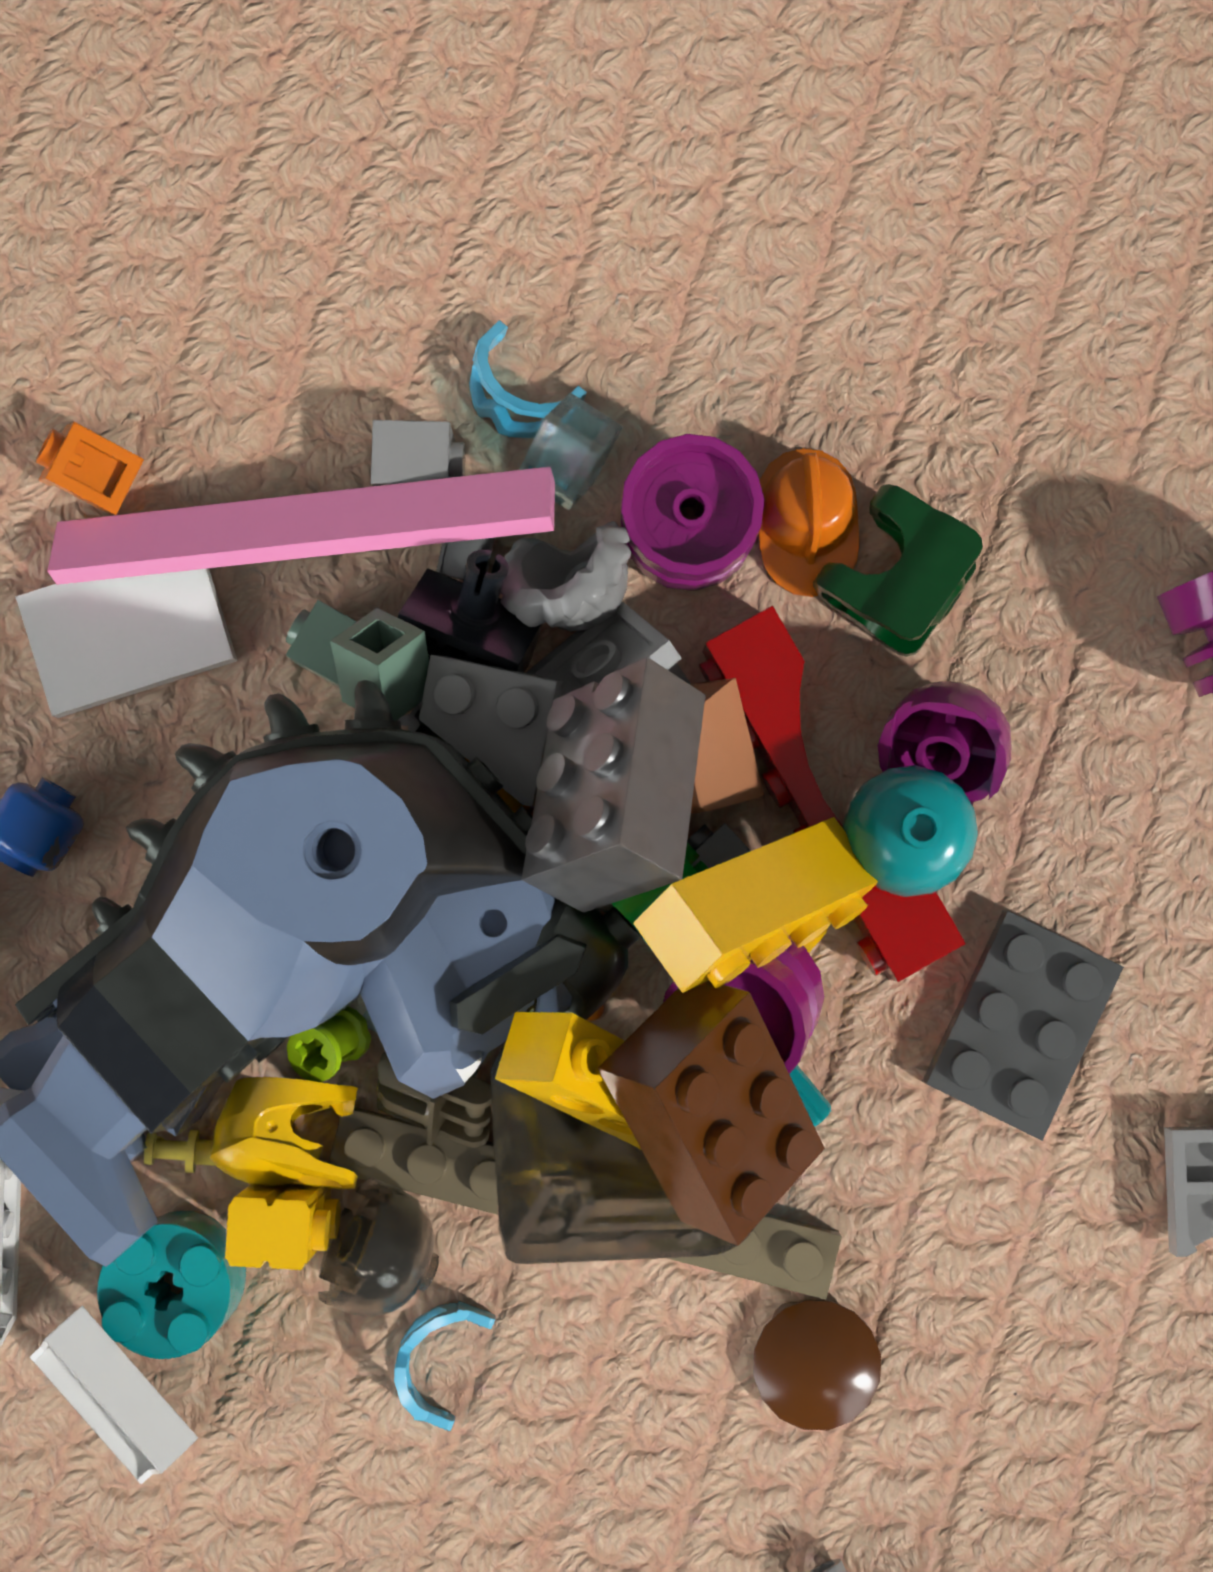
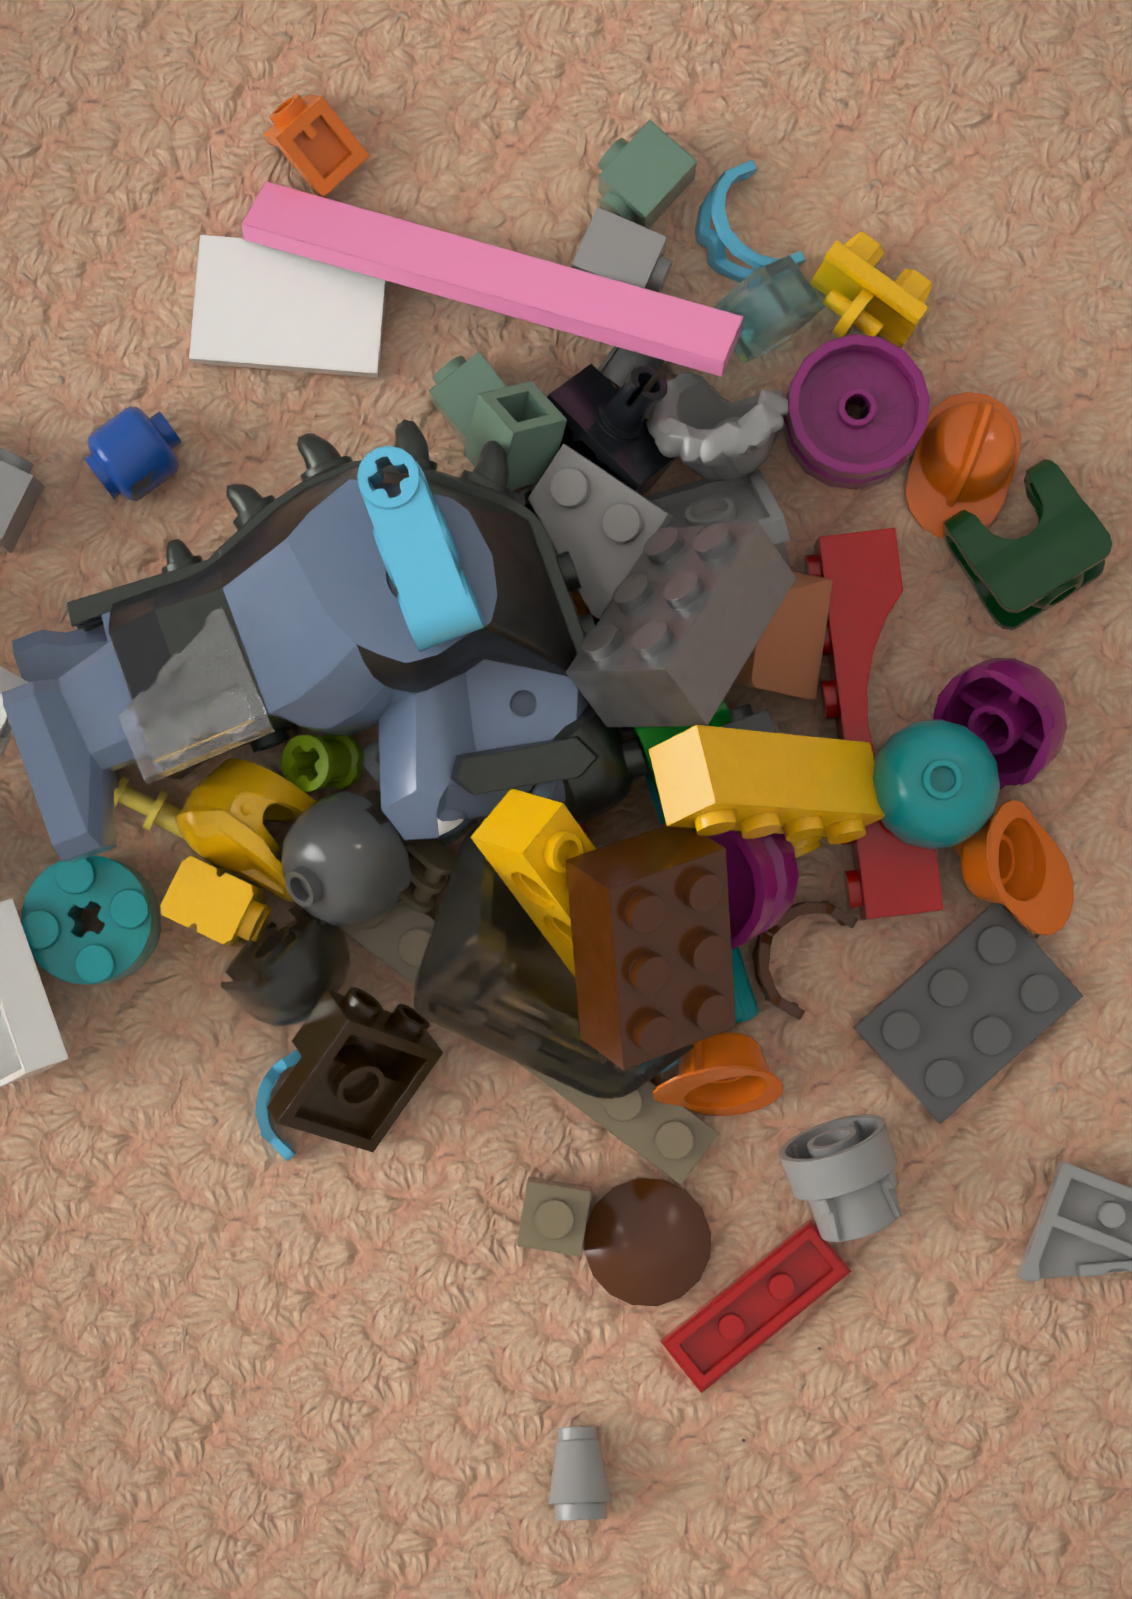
camera: 25 degrees right, 0 degrees up
(170, 1066) = (197, 705): none -> clear wing
(324, 827) = (418, 551): none -> medium azure piece
(384, 1141) = (344, 862): none -> dark grey cylinder
(405, 373) = (644, 175): none -> sand green brick
(475, 1327) = (355, 1069): none -> dark brown plate
(658, 401) = (866, 295): none -> yellow hips
(721, 1382) = (554, 1216): none -> dark tan brick
(813, 1052) = (762, 948): none -> reddish brown helmet
(828, 1186) = (722, 1077): none -> orange piece
(941, 1382) = (755, 1306): none -> red tile
(976, 1228) = (845, 1176): none -> light grey piece
(1018, 876) = (1020, 868): none -> orange piece

